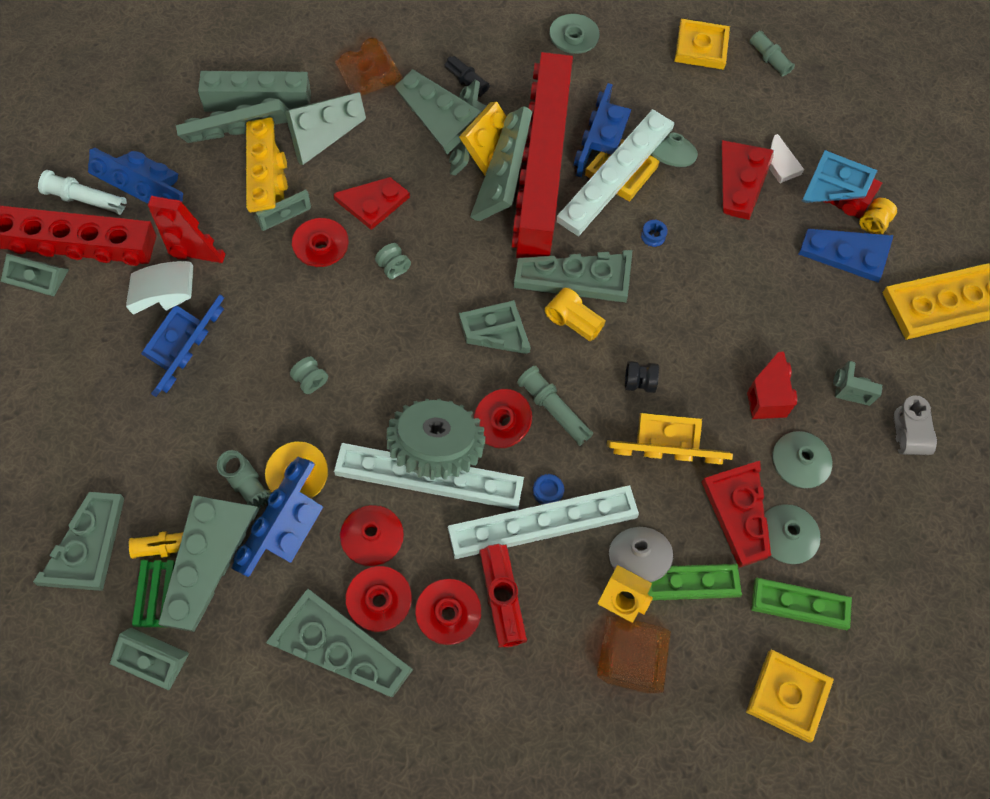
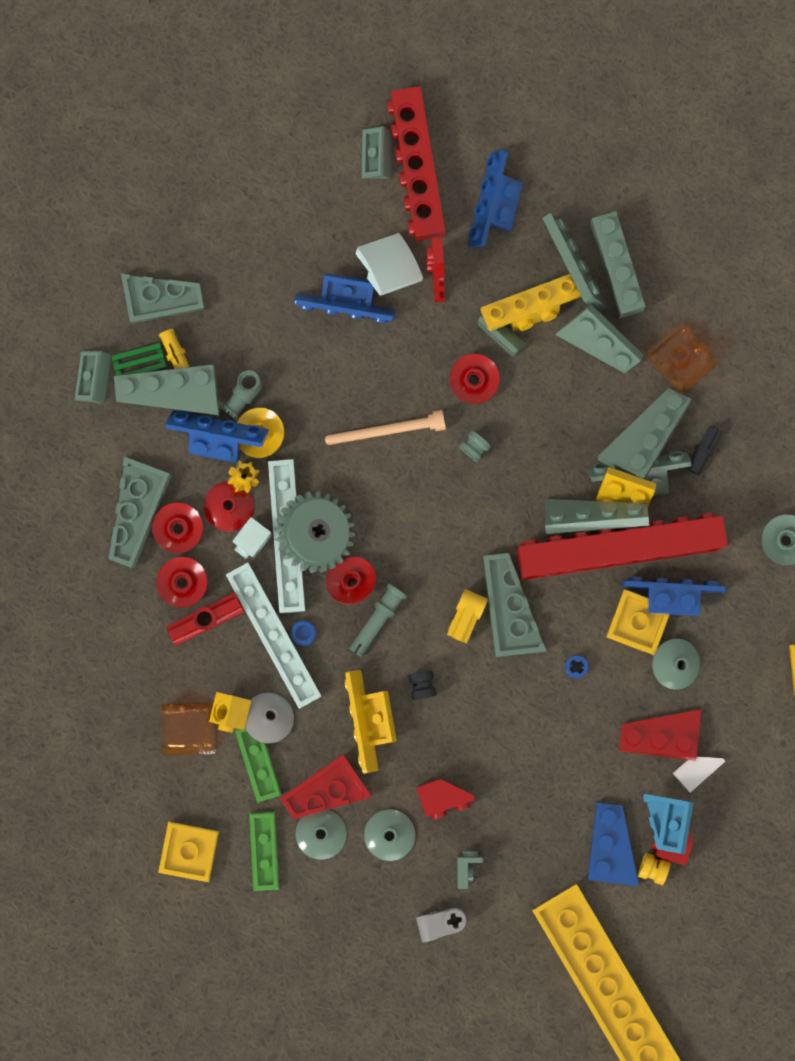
camera: 80 degrees right, 20 degrees up
(71, 190) = (464, 146): light aqua pin -> none
(308, 375) = (345, 413): sand green wheel -> none
(342, 503) = (240, 483): none -> yellow gear
(351, 291) = (434, 421): none -> light nougat piece
(373, 200) = (535, 409): red wing -> none
(420, 514) = (251, 539): none -> light aqua brick
(495, 327) = (436, 552): sand green wing -> none
(614, 172) = (625, 617): light aqua plate -> none

